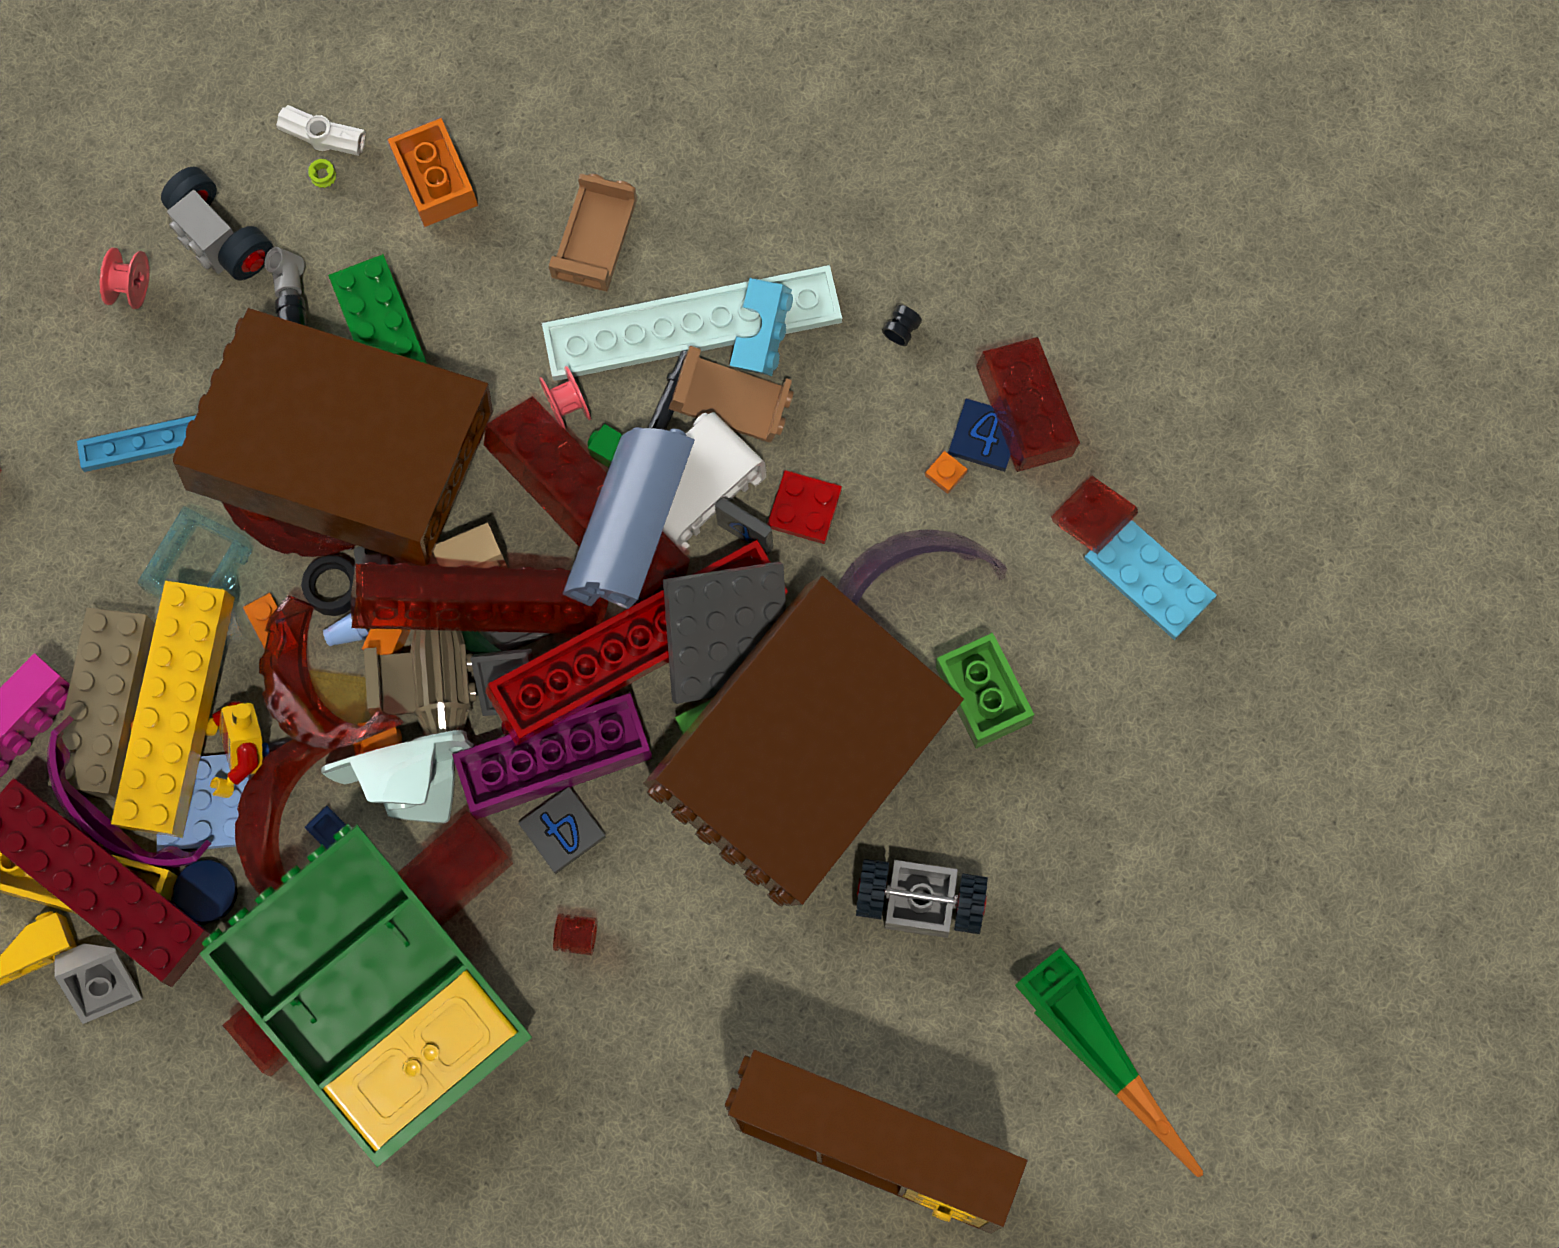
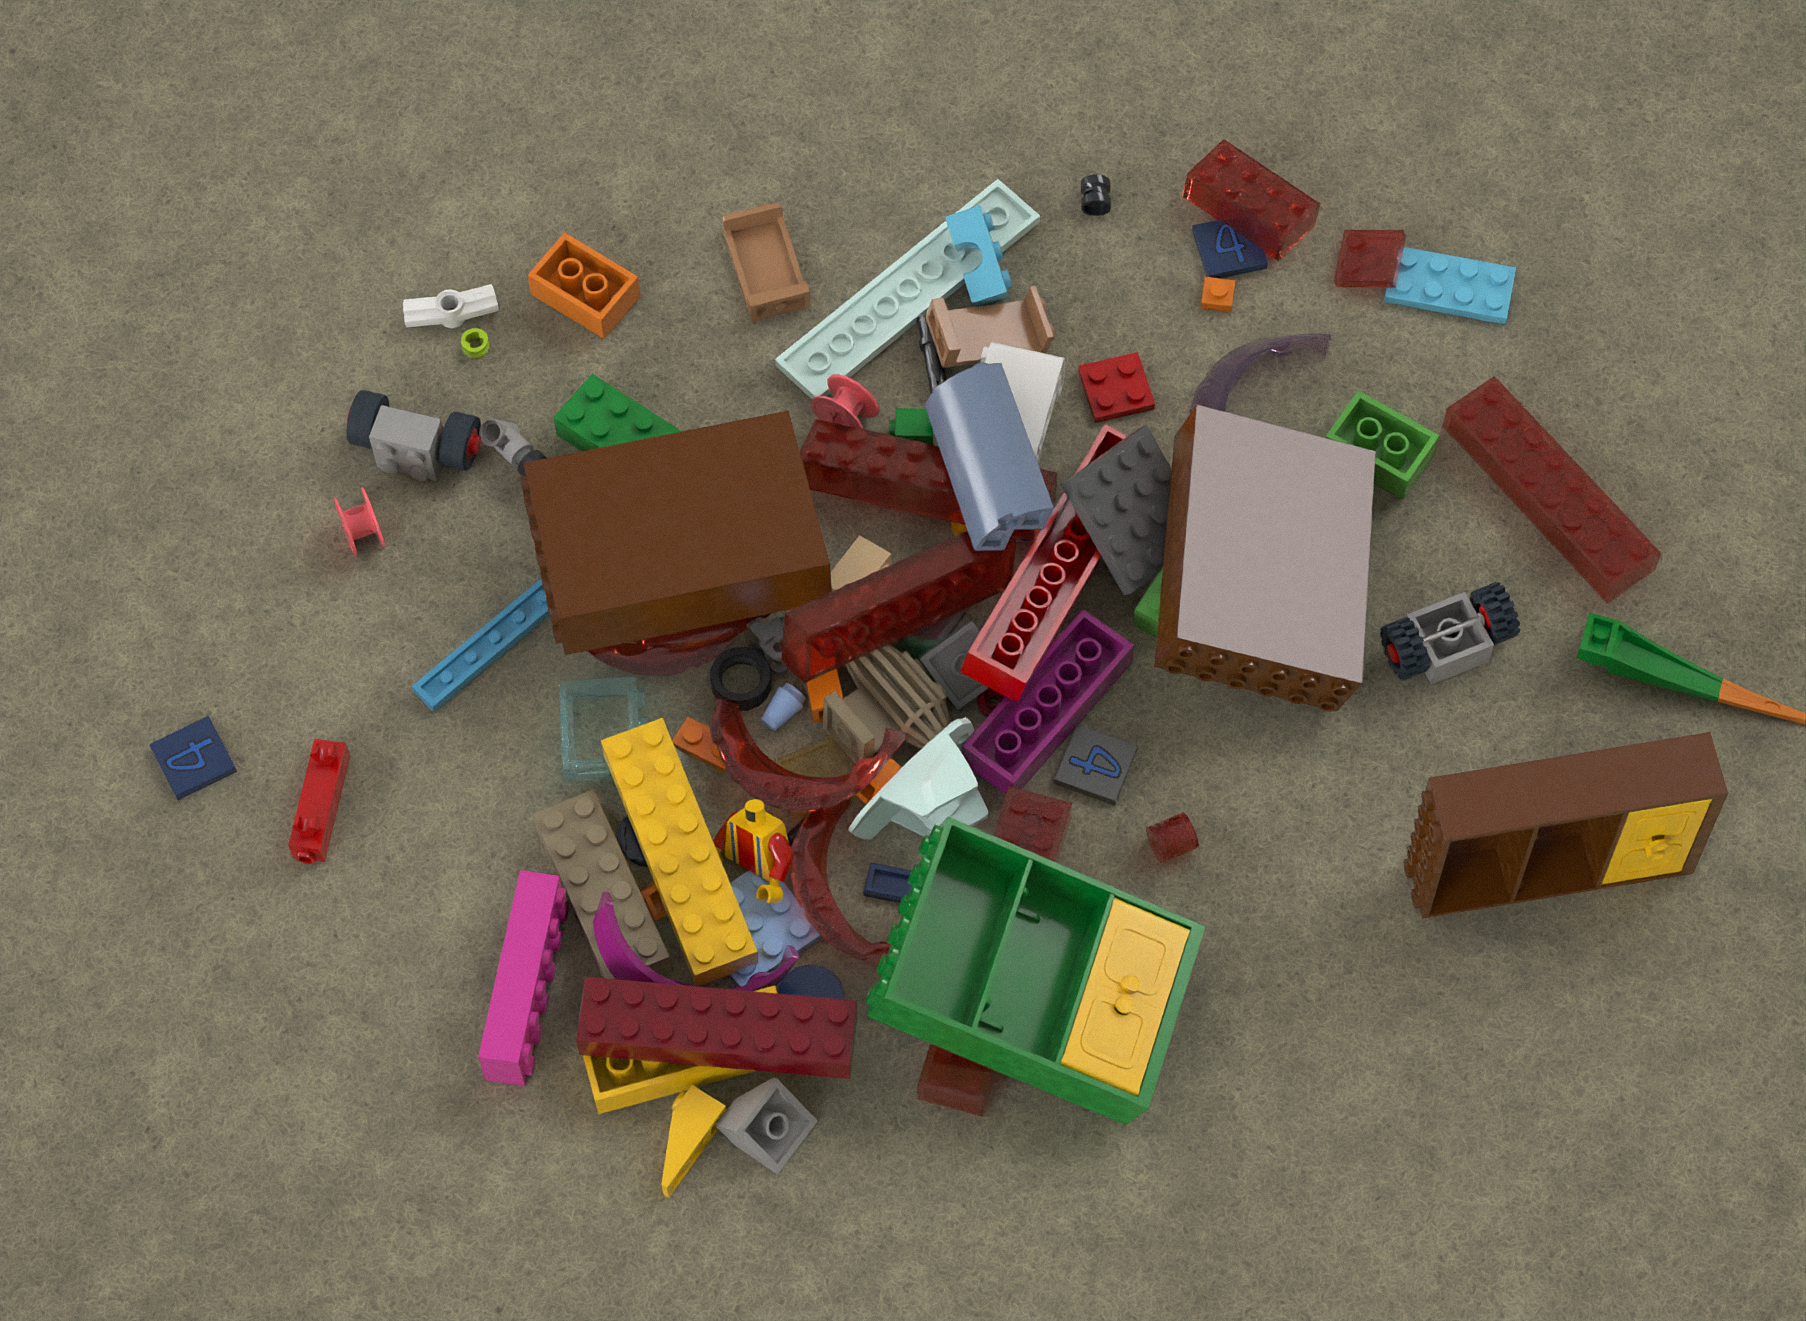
camera: 35 degrees left, 10 degrees down
(743, 525) = (1078, 423): dark grey tile -> none
(1104, 817) = (1551, 489): none -> clear red brick

